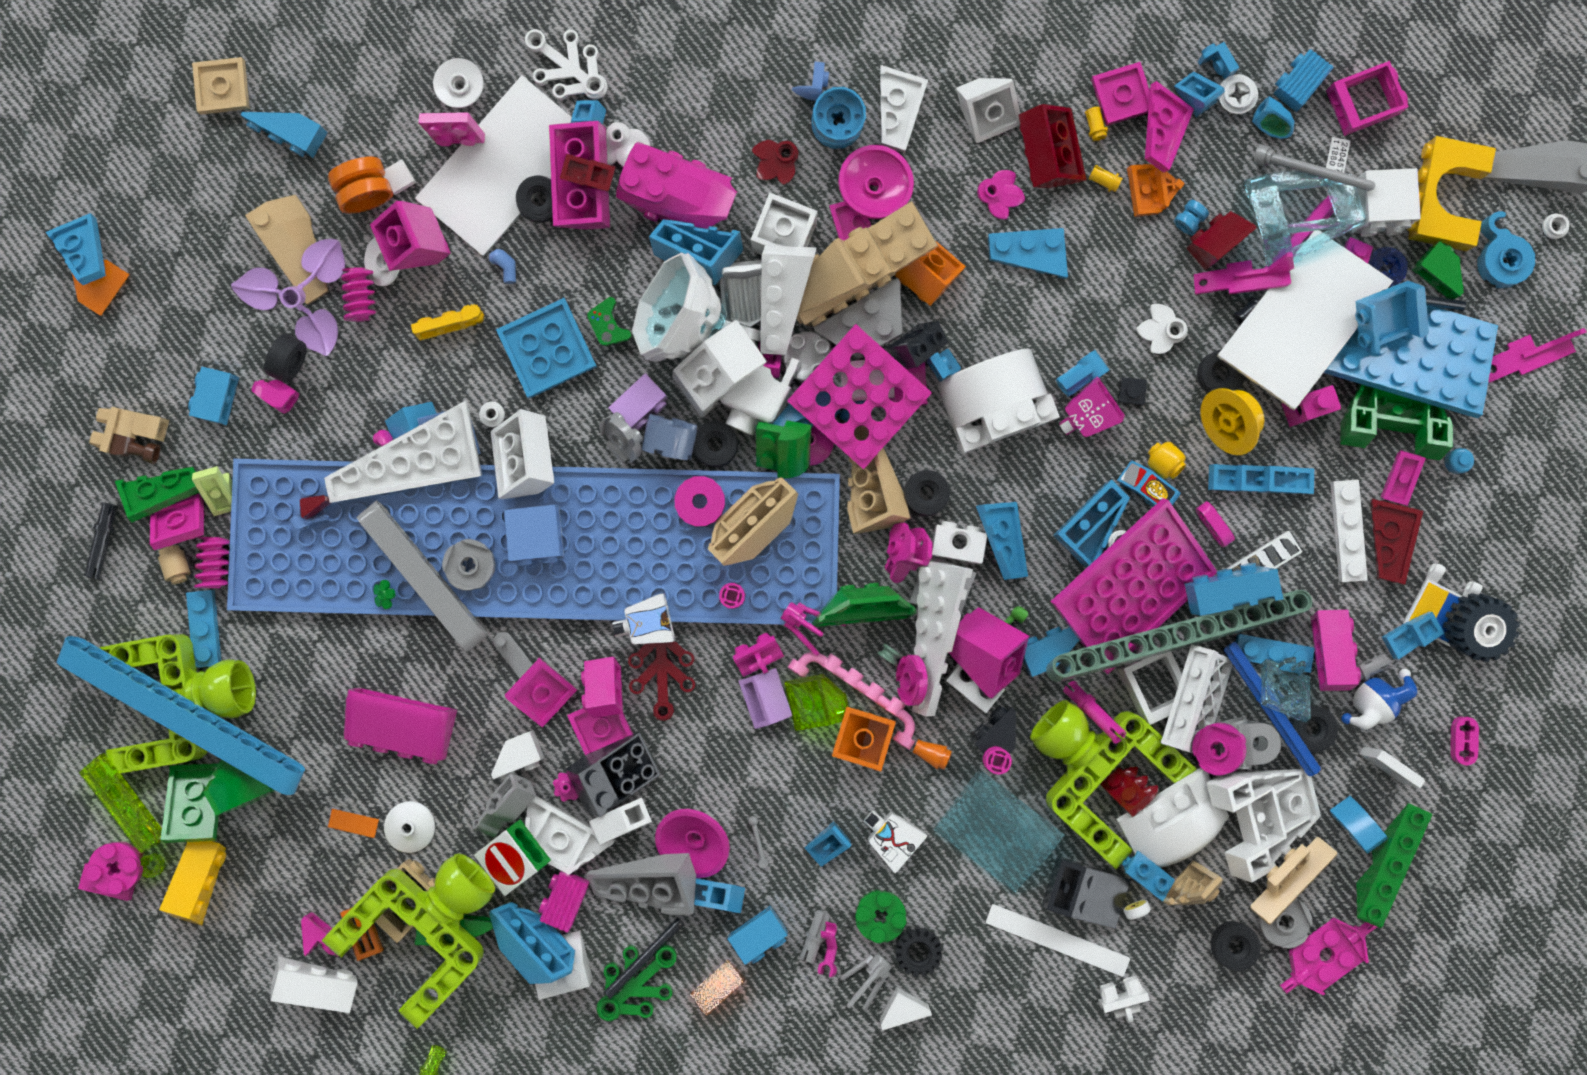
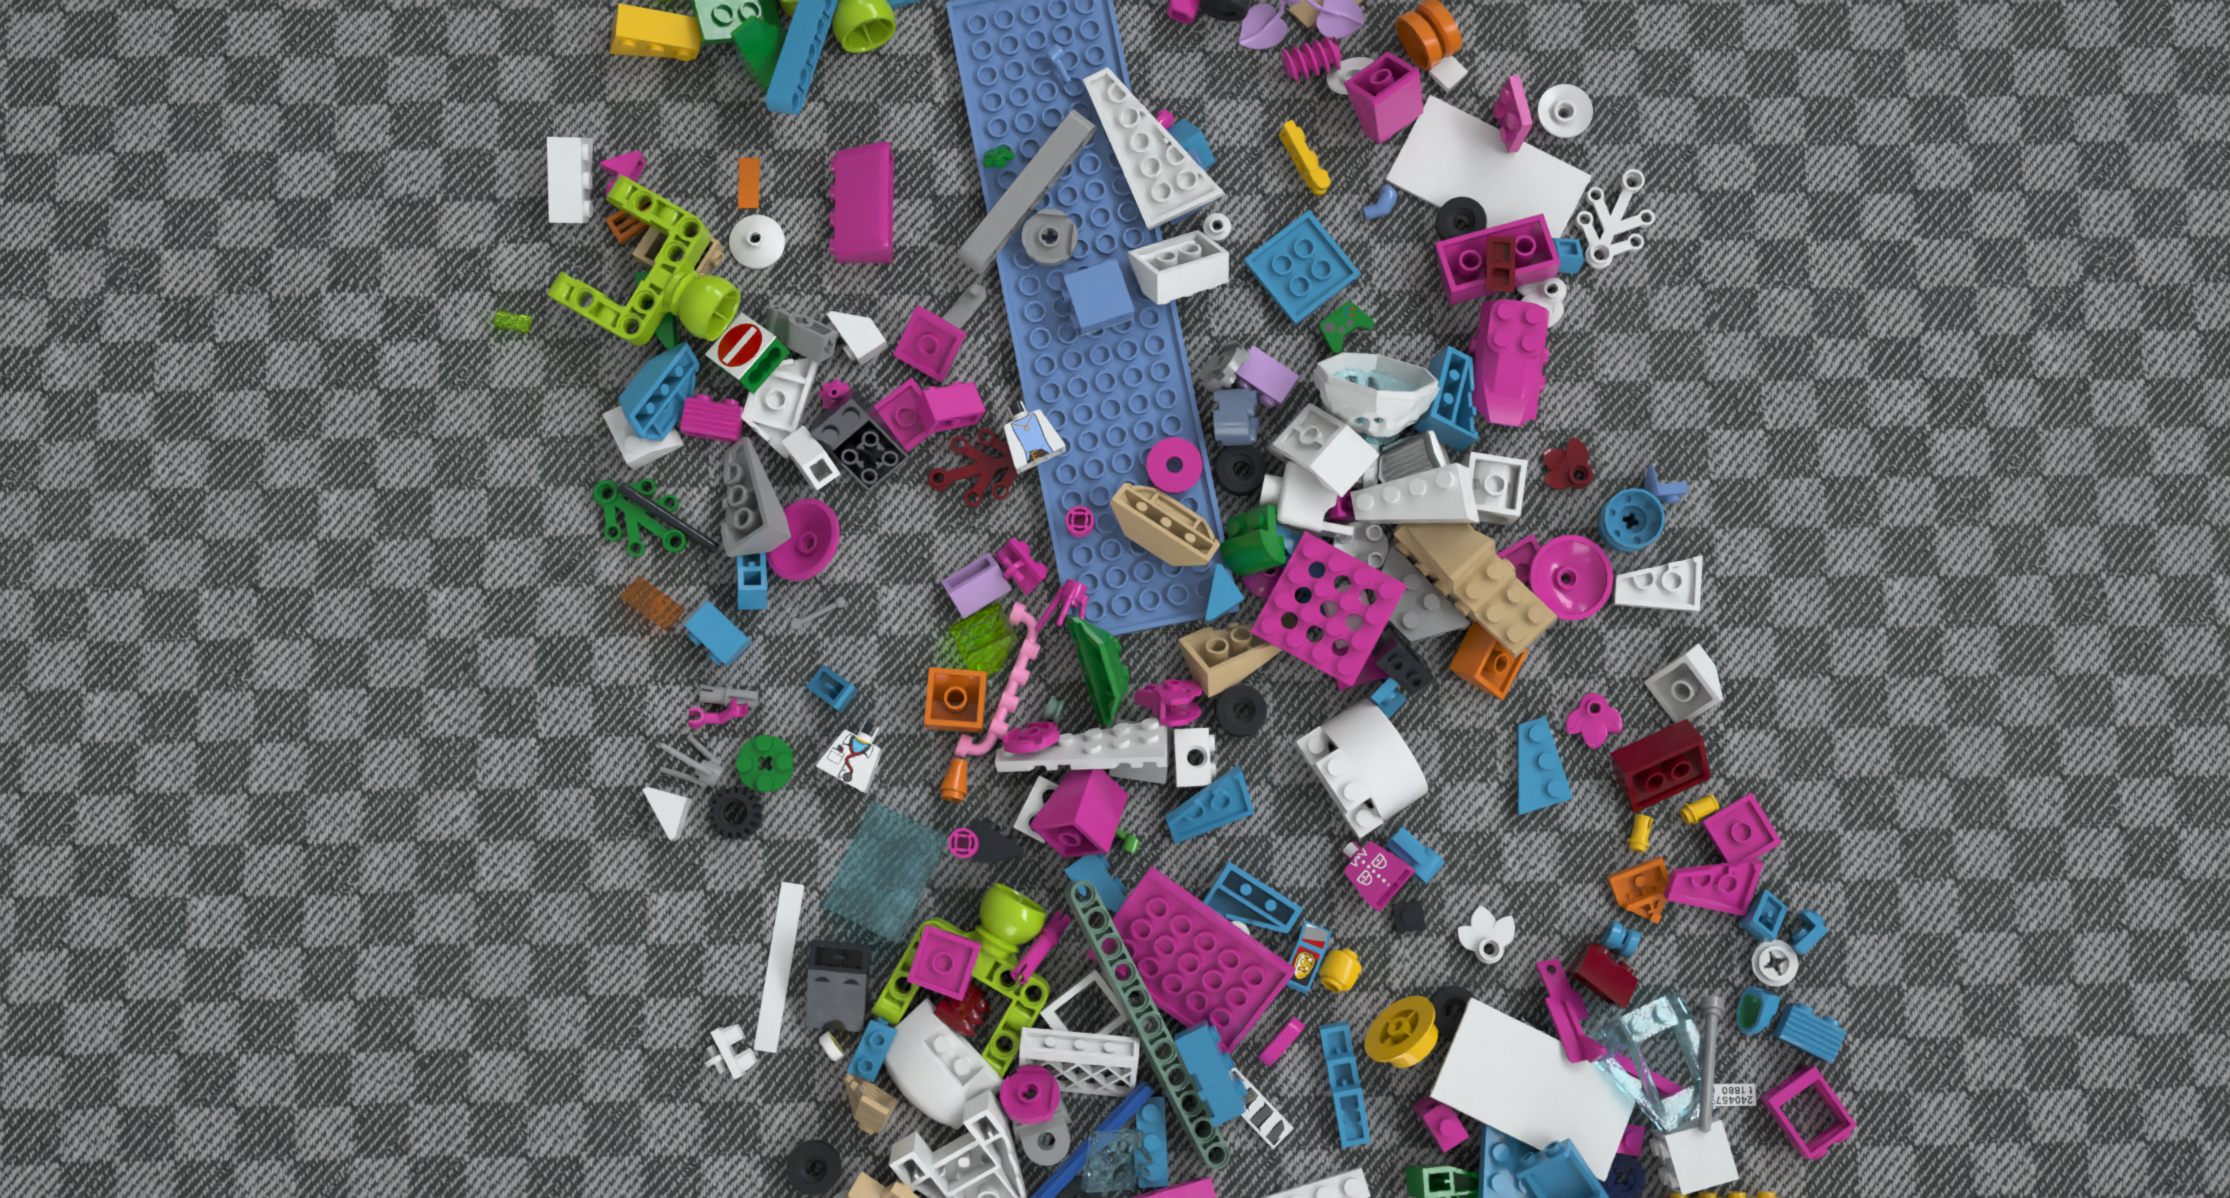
camera: 70 degrees right, 5 degrees down
(313, 505) = (1075, 62): dark red slope -> none
(825, 486) = (1223, 595): none -> dark azure slope
(1092, 798) = (944, 962): none -> dark pink plate

